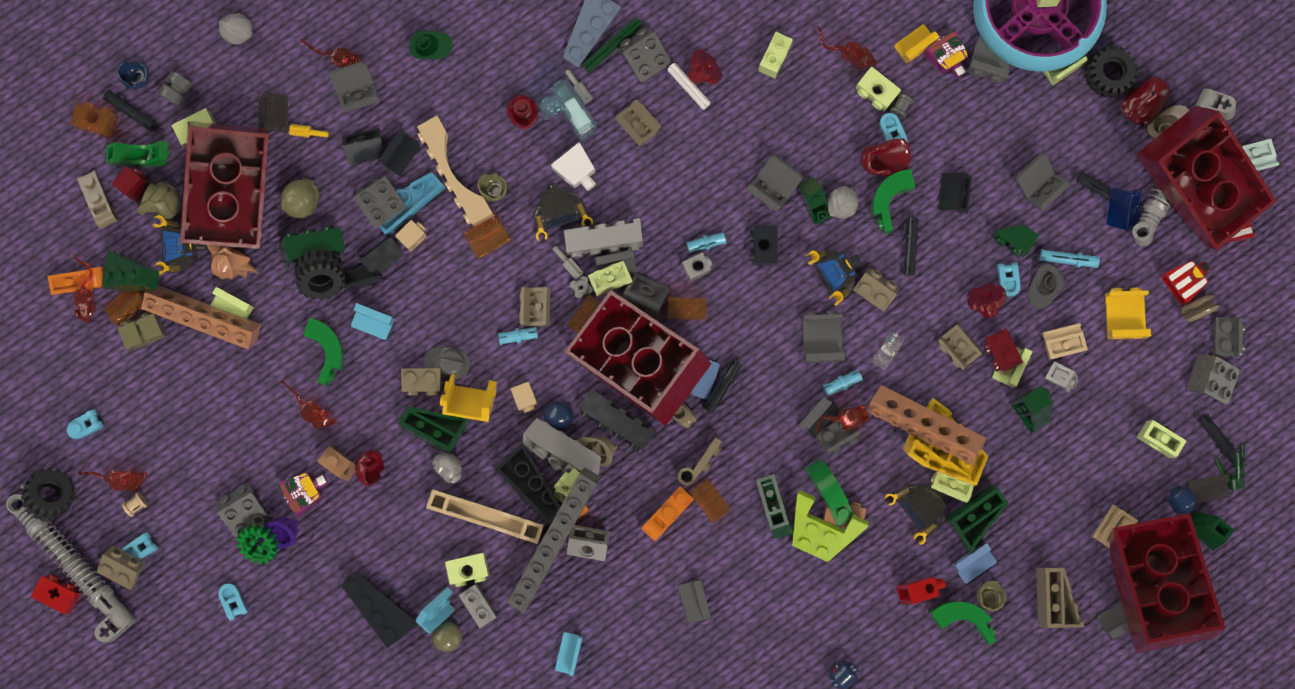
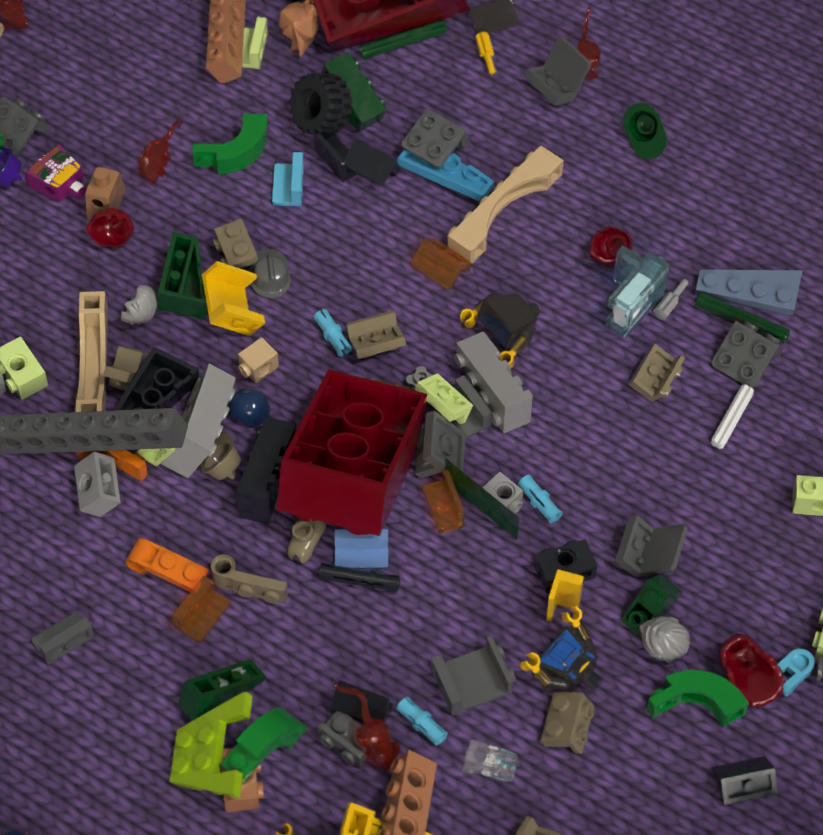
camera: 70 degrees right, 25 degrees down
(270, 191) = (402, 39): none -> dark green axle
(300, 198) = (401, 59): olive helmet -> none
(363, 146) = (493, 108): black panel -> none
(399, 153) = (502, 144): black panel -> none
(411, 235) = (408, 185): tan brick -> none
(492, 187) = (503, 245): olive hair -> none
(497, 492) = (125, 367): none -> dark tan brick
(569, 264) = (445, 358): light grey axle -> none
(575, 168) = (569, 324): white torso -> none
(697, 282) = (483, 500): none -> dark green sticker
(704, 68) = (763, 419): dark red plant -> none
(786, 258) = (564, 592): none -> yellow panel
(910, 247) = (645, 745): black pin -> none

